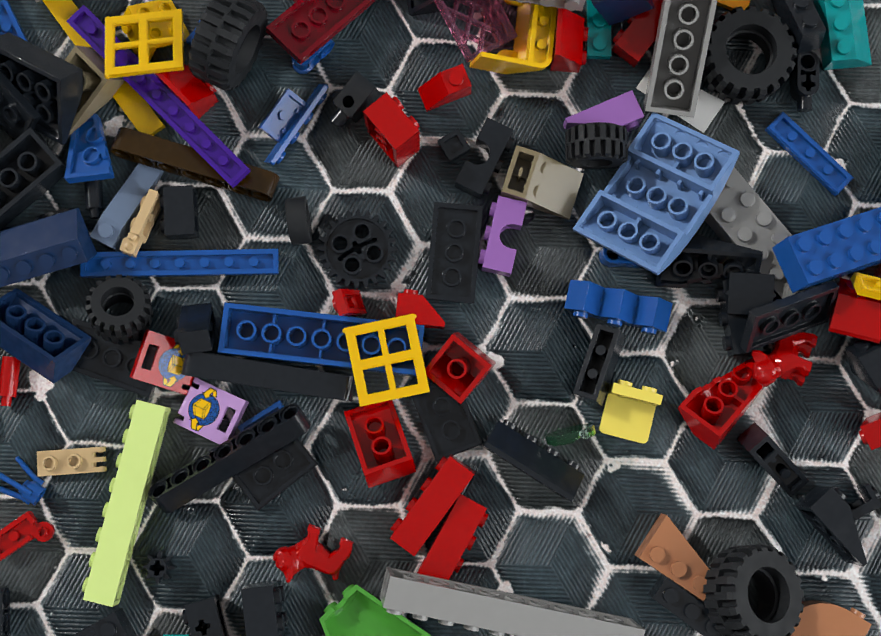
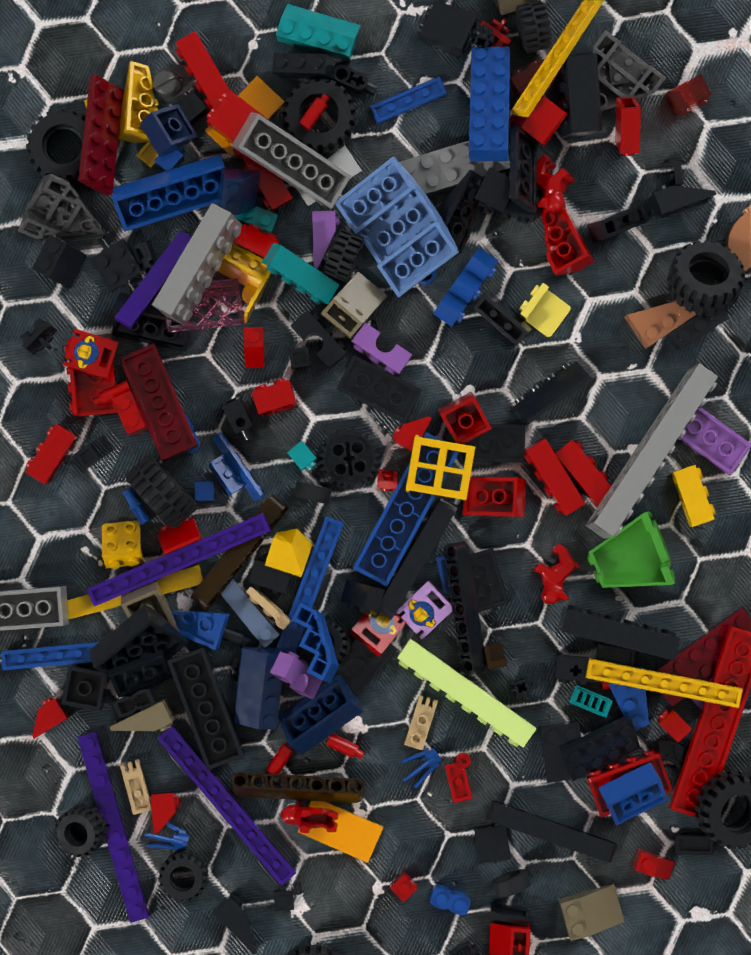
camera: 65 degrees left, 5 degrees up
(69, 284) = (294, 671): none -> medium lavender arch
(113, 292) = (317, 641): none -> blue brick
(143, 43) = (138, 554): yellow window -> none
(185, 519) = (495, 656): none -> dark brown panel
(217, 221) = (289, 552): none -> yellow slope
(253, 98) = (204, 491): none -> blue tile
(338, 193) = (302, 456): none -> teal brick
(553, 102) = (299, 273): none -> teal brick
(570, 434) = (543, 359): clear green tile -> none
(750, 41) = (314, 112): none -> red cylinder

